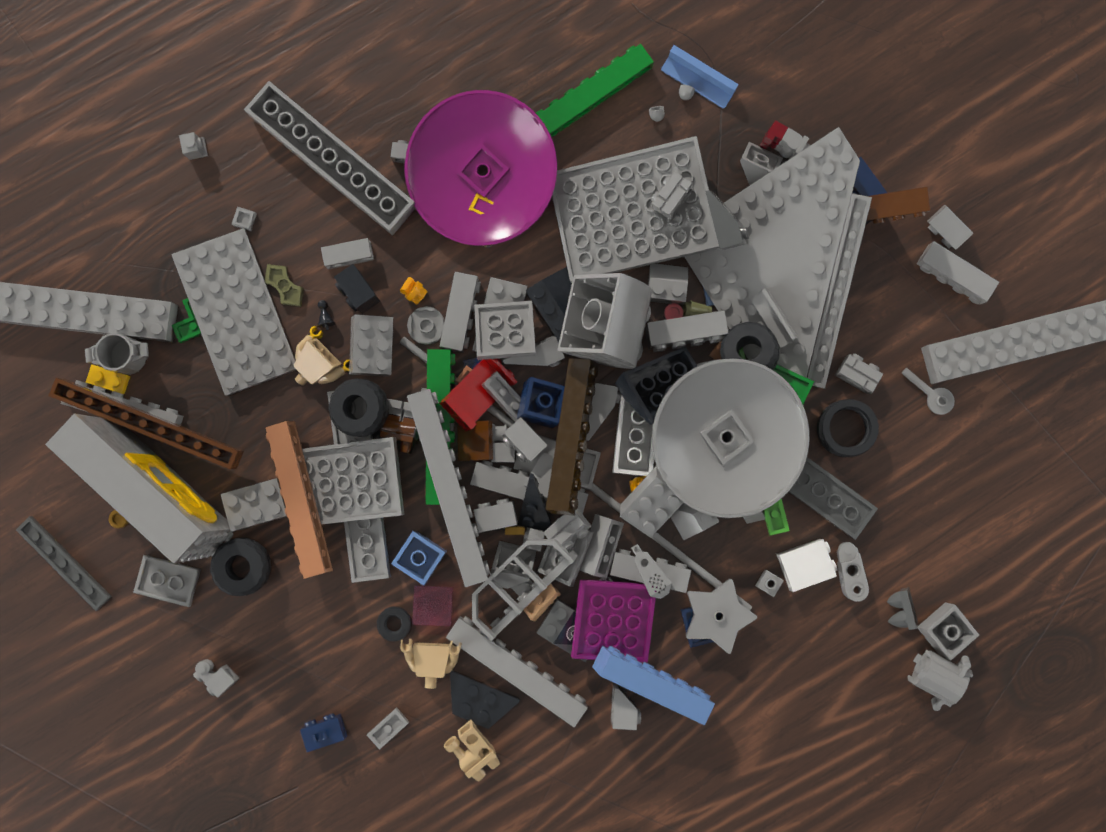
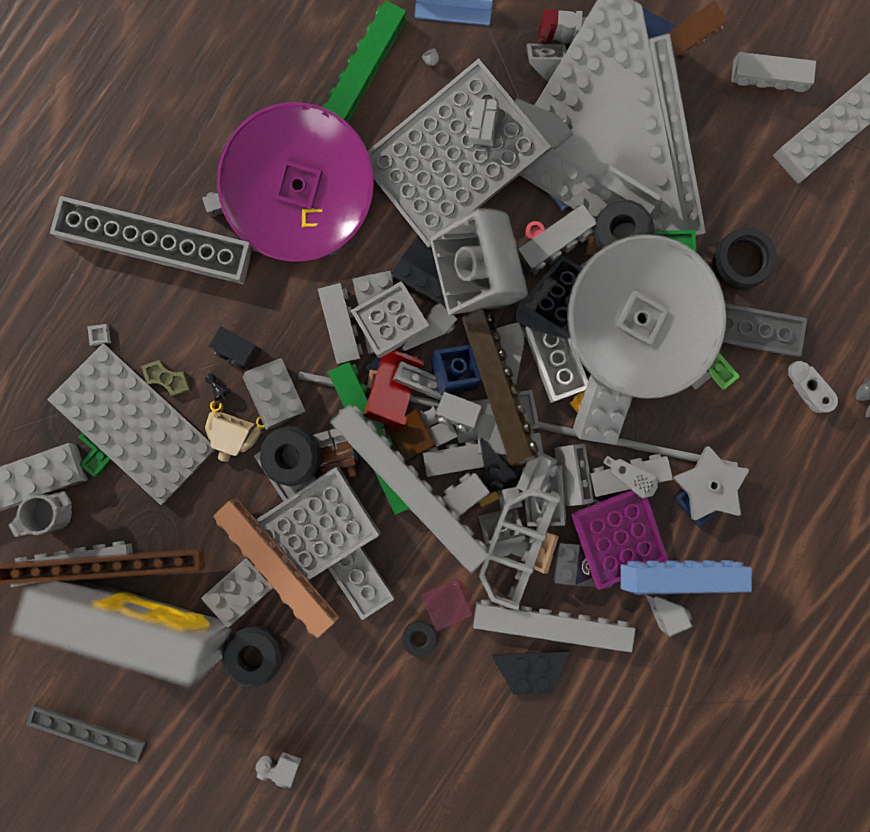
camera: 25 degrees left, 0 degrees up
(107, 379) = (44, 543): yellow plate -> none
(117, 520) = (116, 669): pearl gold tile -> none
(167, 580) = (190, 703): light grey tile -> none
(193, 146) = (19, 290): light grey brick -> none
(323, 732) = (403, 770): dark blue brick -> none
(347, 253) = (210, 320): light grey piece -> none
(388, 728) = (460, 737): light grey plate -> none
(413, 290) = (287, 325): light orange piece -> none
(419, 557) = (413, 566): medium blue brick -> none
(425, 325) = (314, 351): light grey tile -> none
(431, 660) = (470, 655): tan torso -> none
(478, 753) = (555, 721): tan hips -> none
(668, 283) = (519, 205): light grey slope -> none
(686, 92) = (448, 25): light grey hinge -> none
(691, 522) = (645, 411): light grey slope -> none
(693, 308) = (551, 217): olive cone -> none
(763, 580) = (736, 433): light grey plate -> none
(807, 564) = (768, 400): white brick -> none
(859, 374) = (730, 205): light grey brick -> none
(939, 400) = (812, 194): light grey piece -> none
(949, 227) = (746, 33): light grey brick -> none

